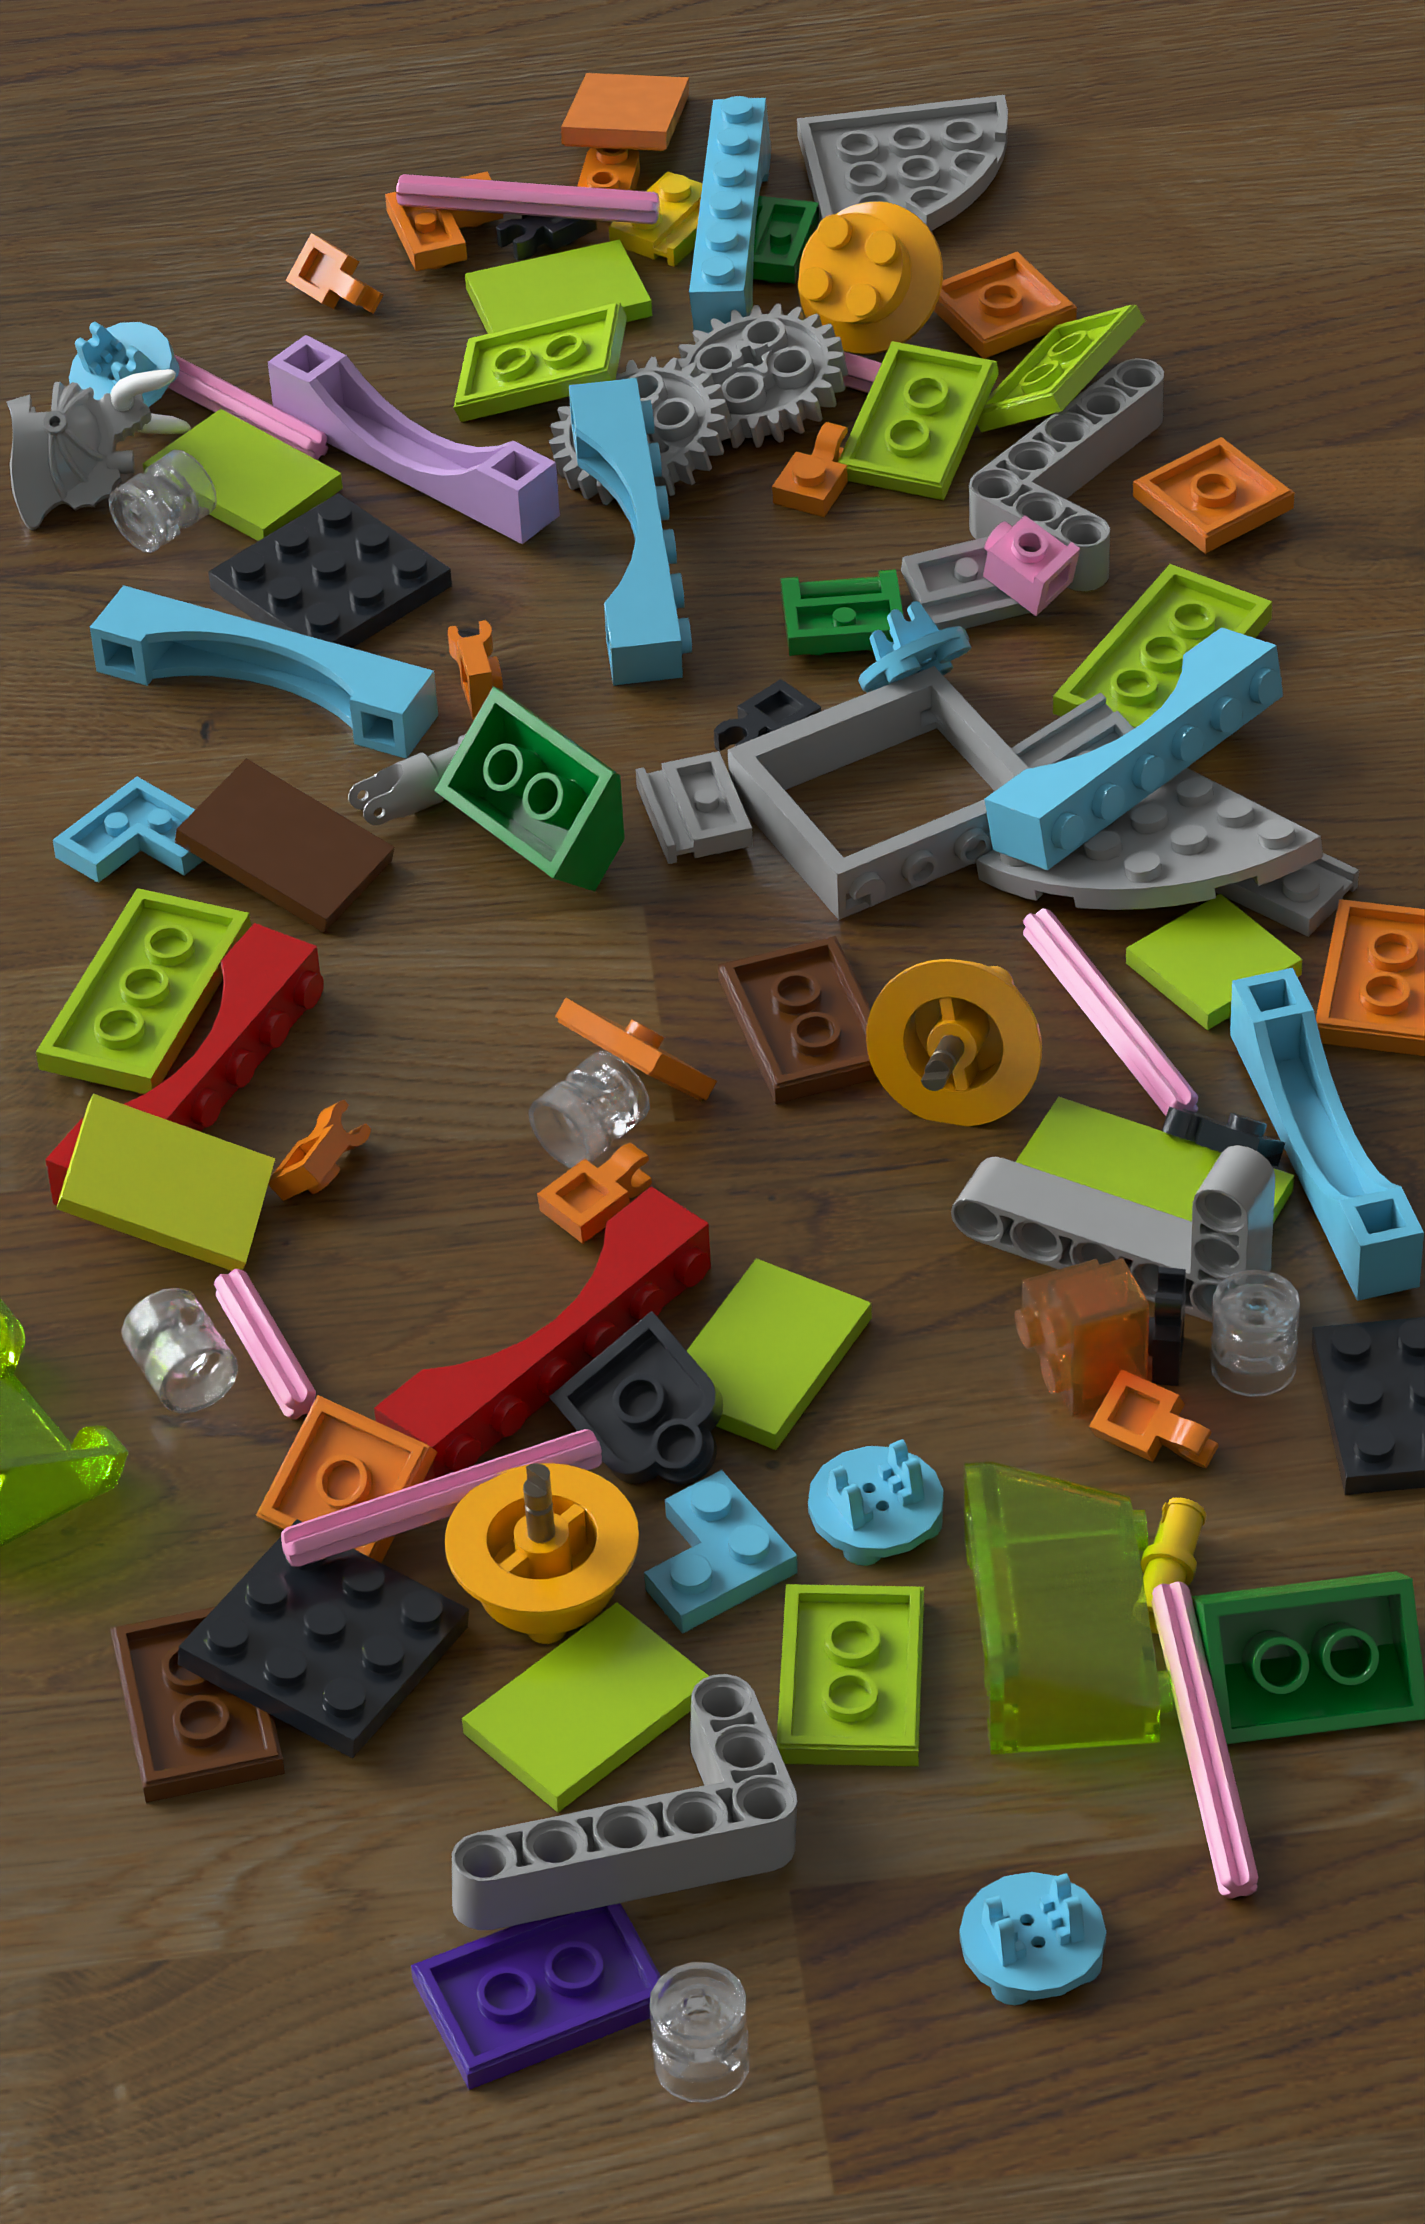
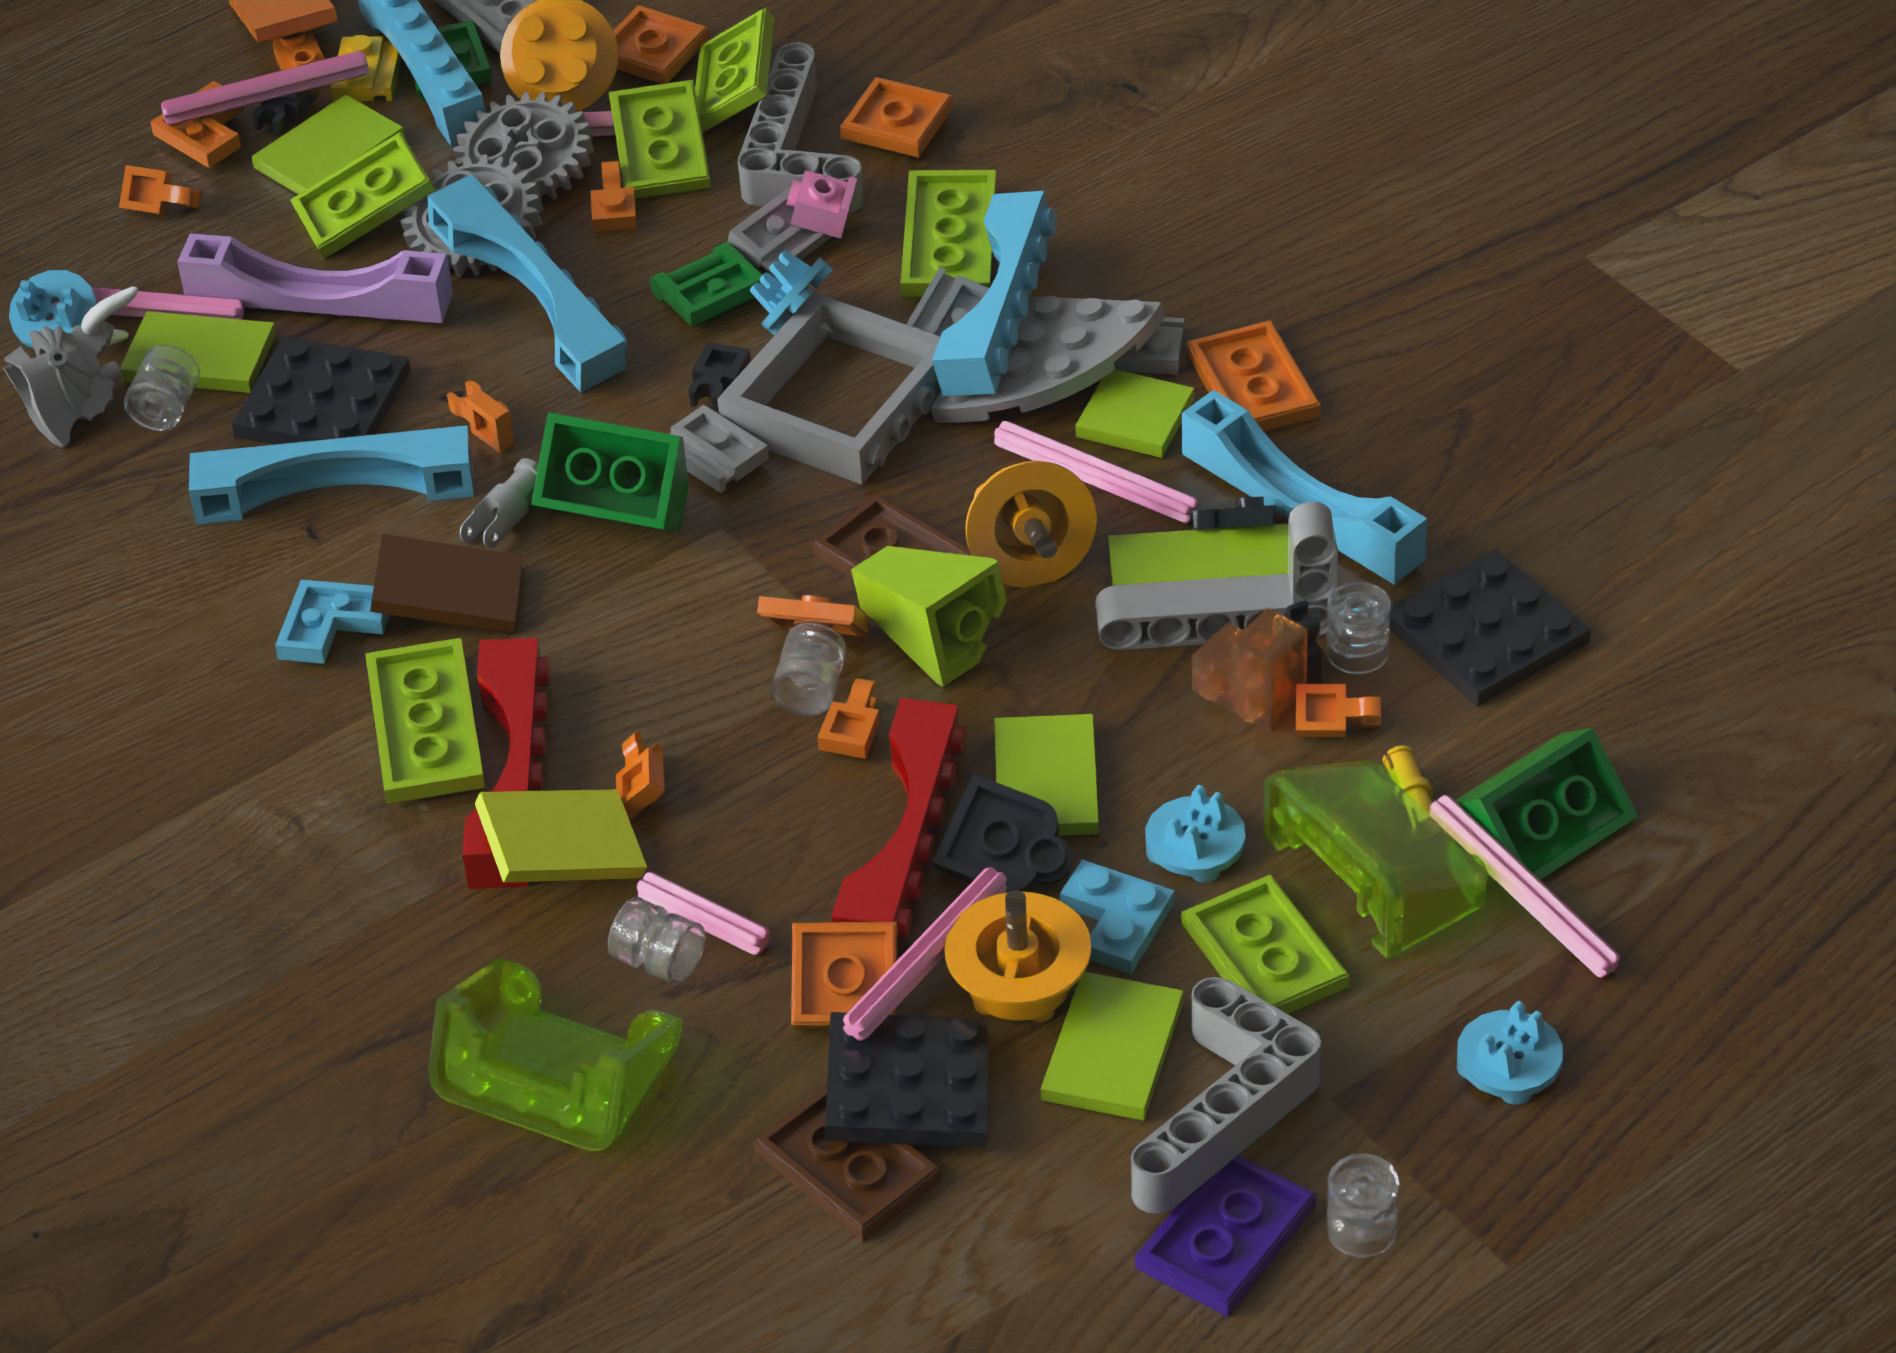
camera: 30 degrees left, 0 degrees up
(776, 1094) = (932, 605): none -> lime slope

